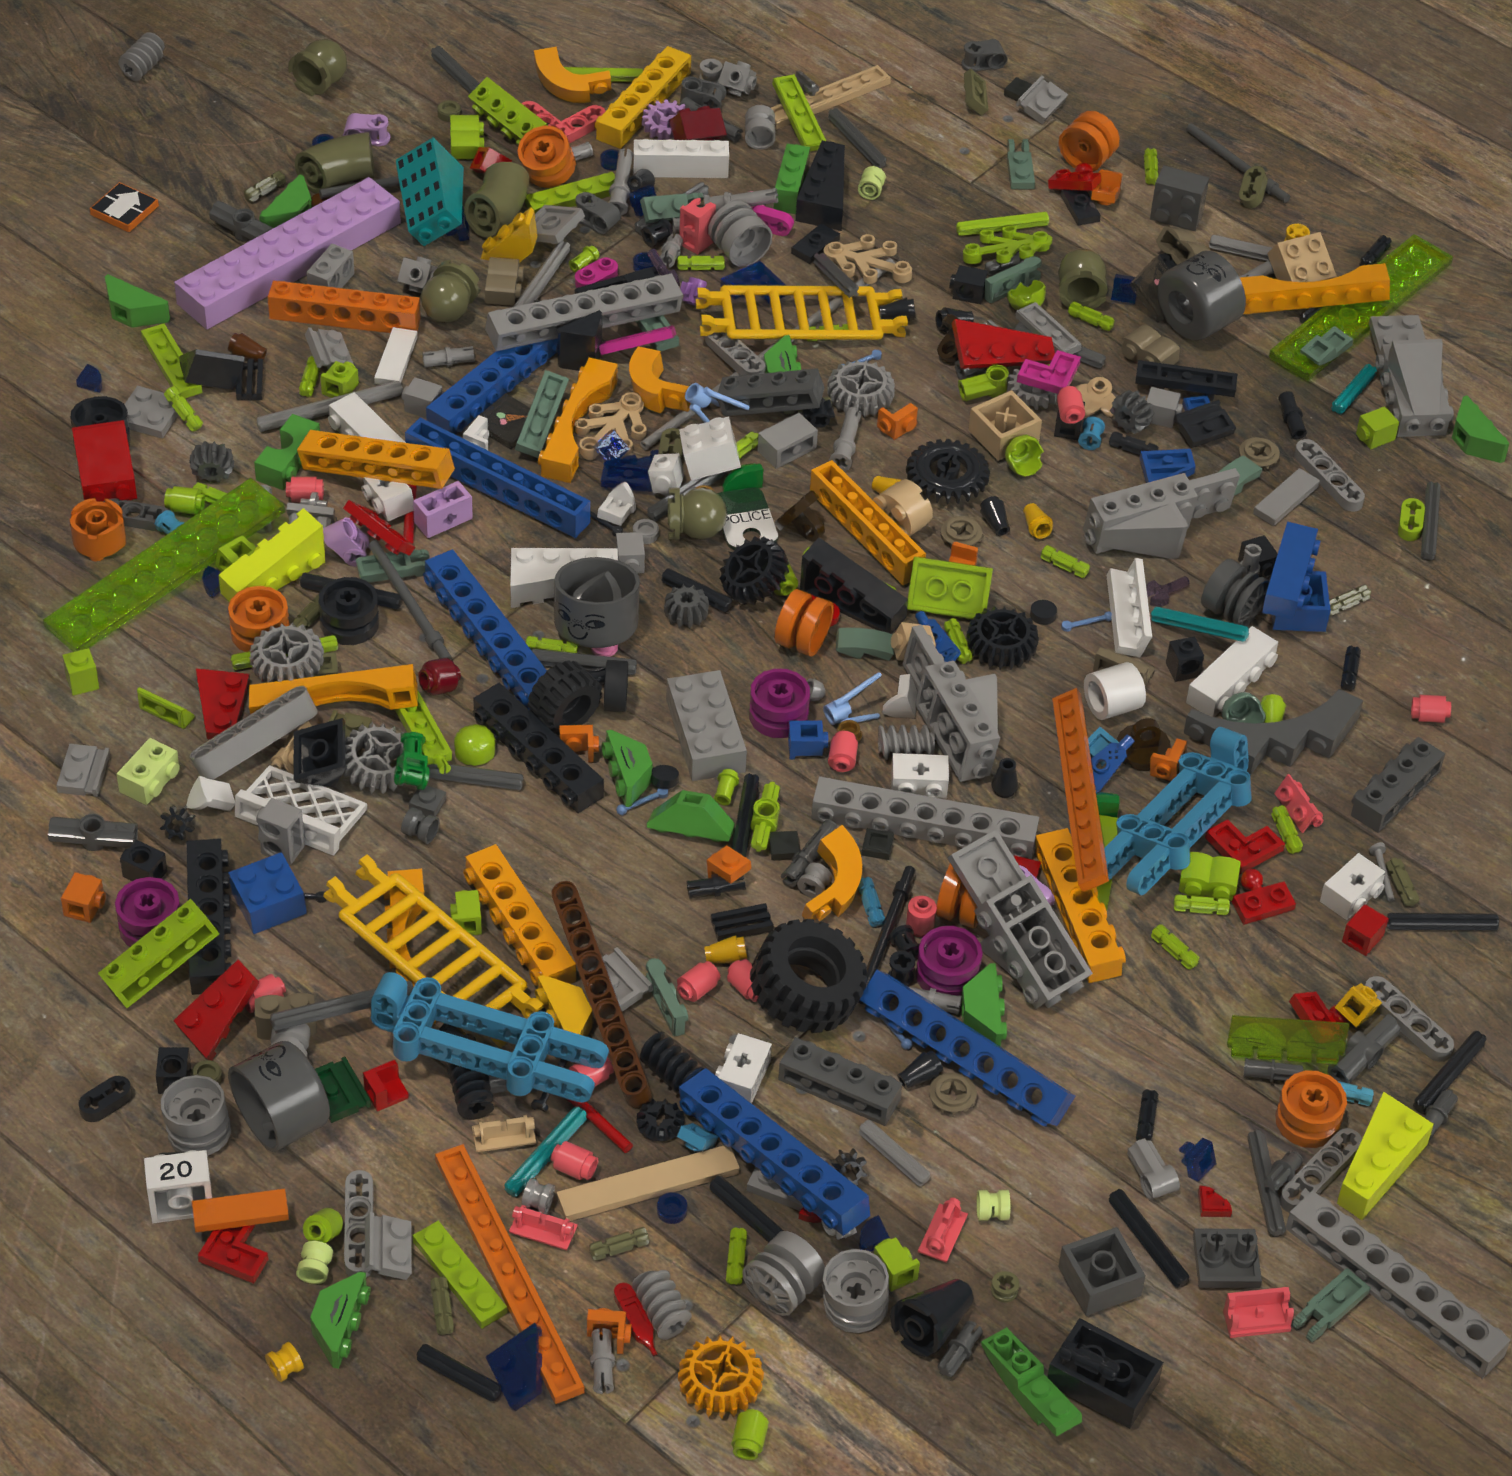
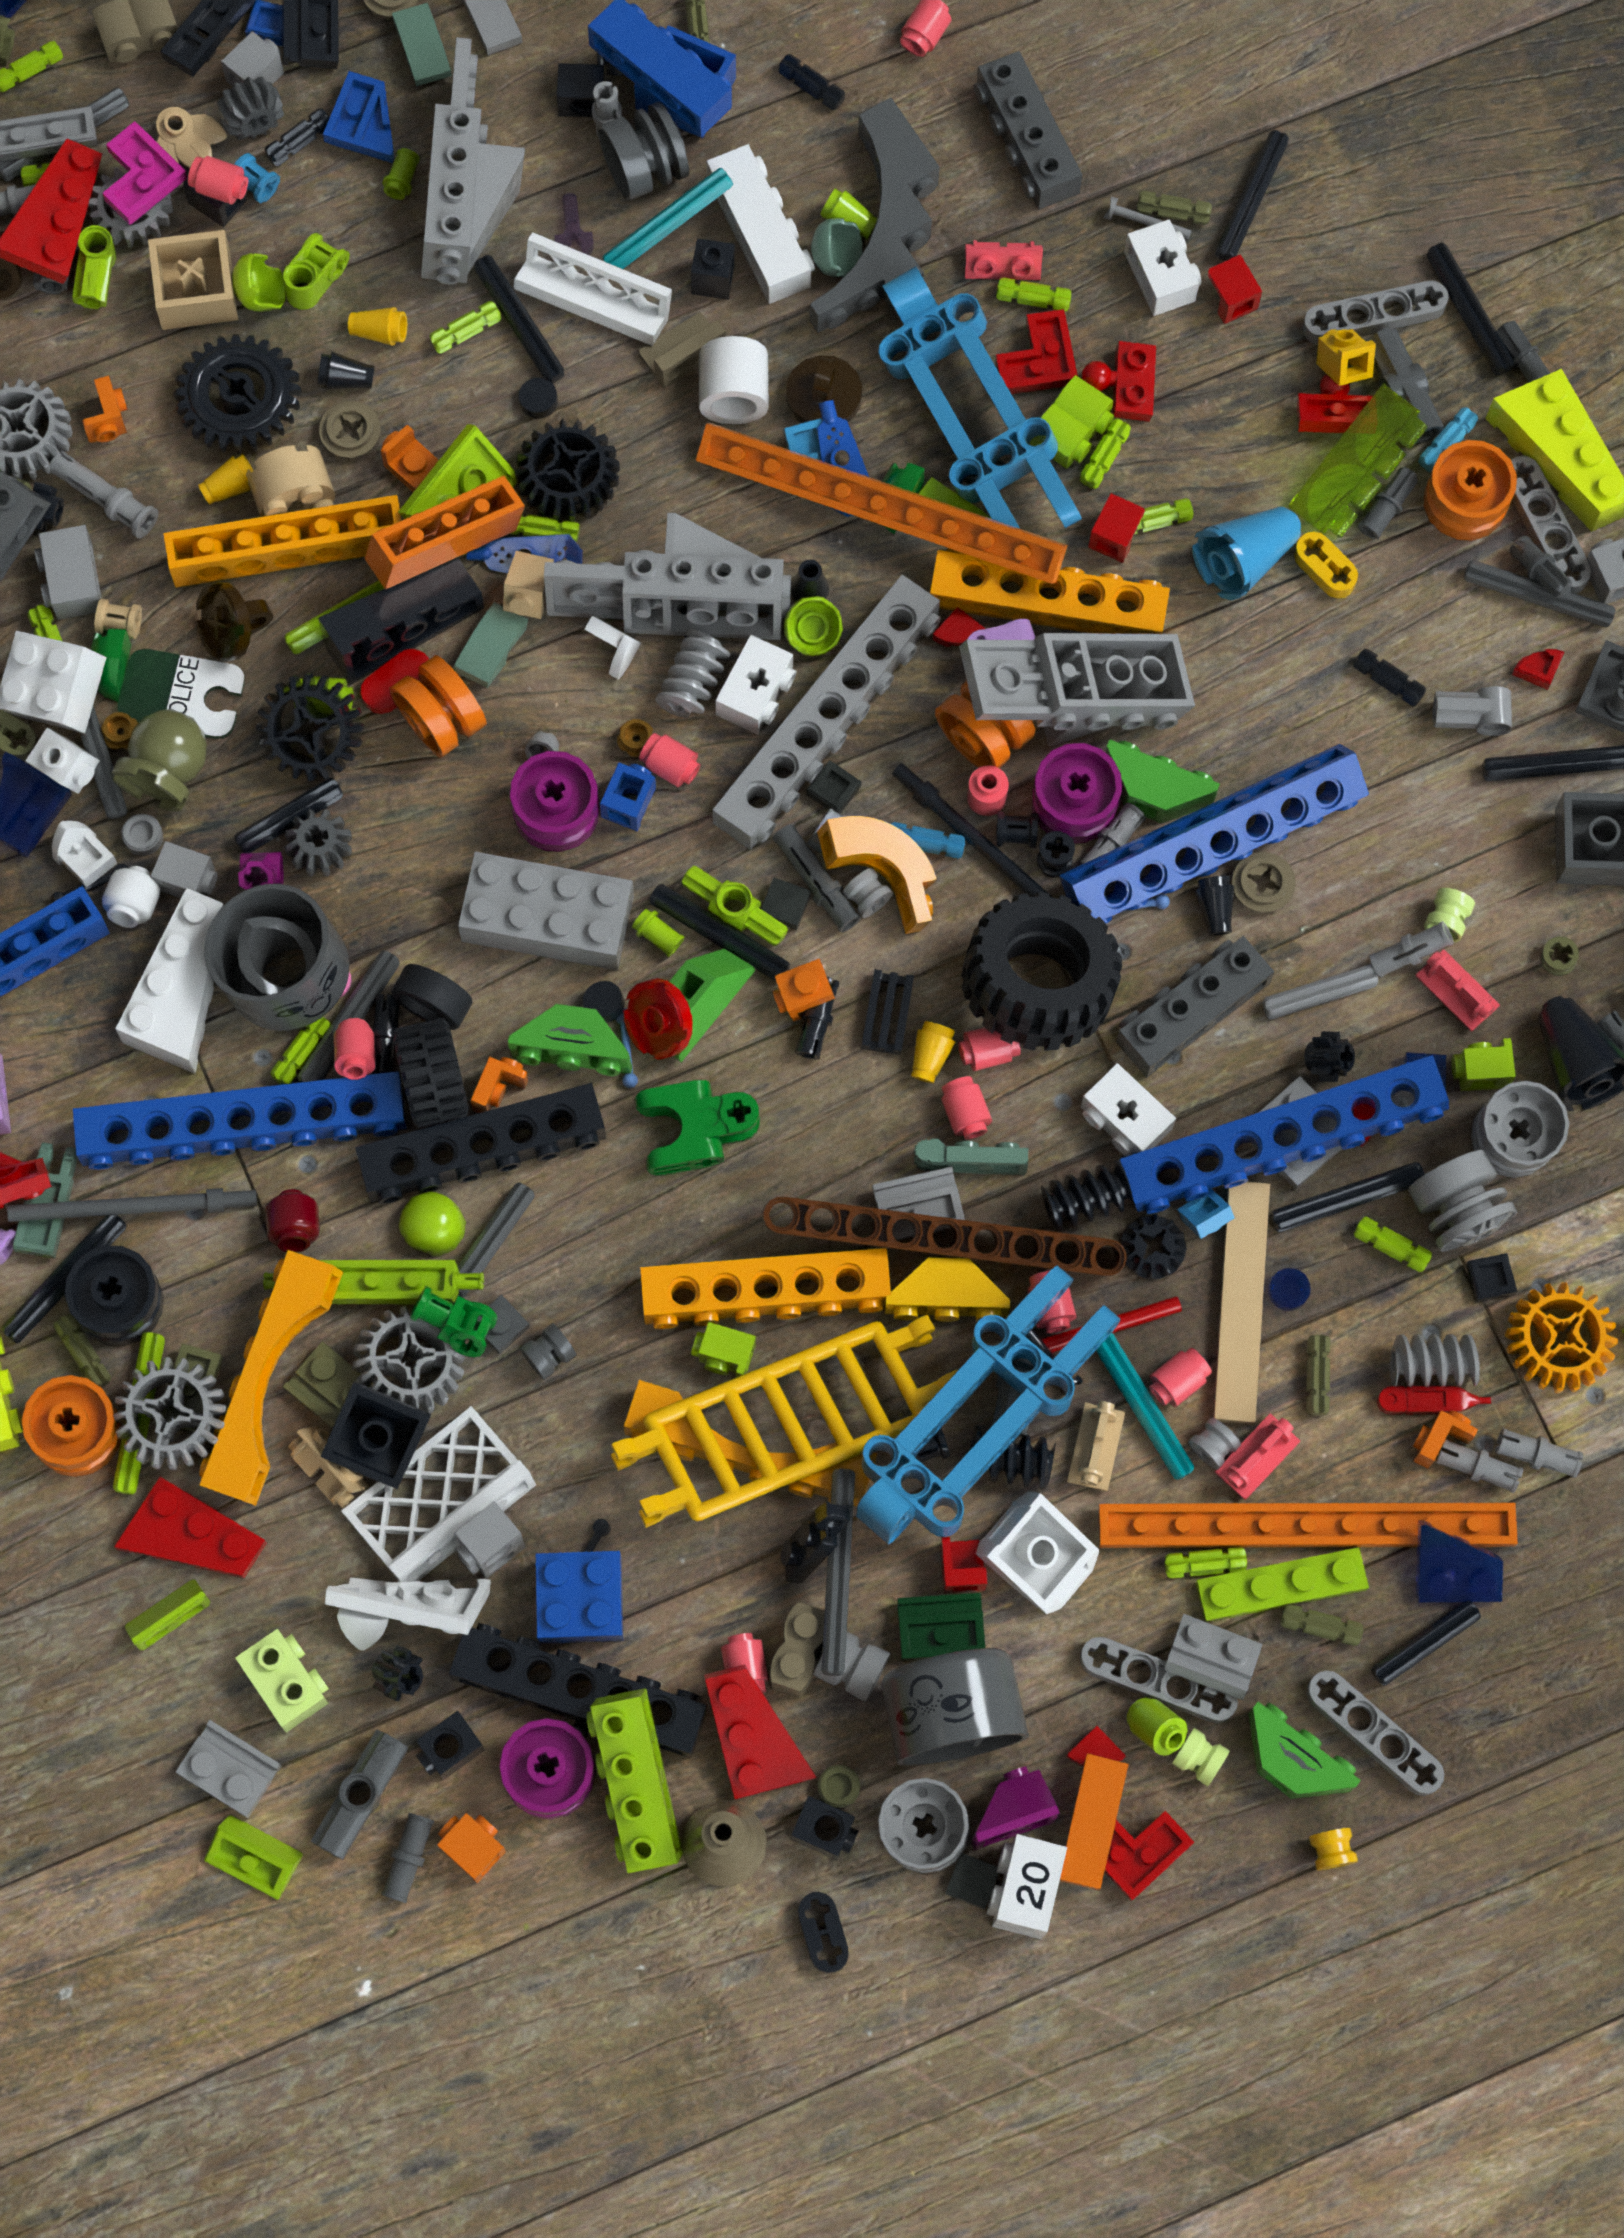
camera: 65 degrees left, 25 degrees up
(34, 800) = (253, 1856): none -> lime slope
(62, 870) = (407, 1857): none -> dark grey pin
(80, 671) = (50, 1710): lime brick -> none
(141, 1018) = (729, 1860): none -> dark tan cone
(225, 814) = (417, 1603): none -> white wing
(229, 1164) = (1016, 1808): none -> magenta slope
(254, 733) = (279, 1494): light grey beam -> none
(297, 1206) = (1096, 1744): none -> red tile
(366, 980) = (813, 1541): none -> black hinge
(382, 1364) = (1379, 1727): none -> light grey beam
(411, 1123) = (1038, 1552): none -> white slope
(453, 1222) = (1205, 1562): none -> lime axle
(555, 655) = (354, 1049): none -> coral brick
(600, 533) = (130, 896): none -> white head
(612, 850) = (705, 1124): none -> green piece
(629, 1393) = (1539, 1452): none -> light grey pin
(650, 582) = (260, 869): none -> magenta piece
(664, 798) = (658, 1018): none -> red tile
(744, 1324) = (1491, 1278): none -> black tile
(775, 470) = (118, 617): none -> tan bush
(840, 709) = (594, 733): light blue plant -> none
(913, 578) = (444, 532): none -> orange brick
(952, 1186) = (1434, 939): none -> light grey pin
(977, 786) = (813, 626): none -> lime hair
(1047, 478) = (317, 266): none -> lime piece
(1067, 625) = (574, 380): medium blue hinge -> none
(1087, 584) = (519, 319): none -> black axle
(1149, 919) = (1116, 528): none -> red panel
(1167, 765) = (874, 371): orange bracket -> none
(1185, 997) = (1244, 549): none -> dark azure cone
(1198, 1158) = (1478, 652): clear blue tile -> none
(1199, 1050) = (1322, 567): none -> yellow beam

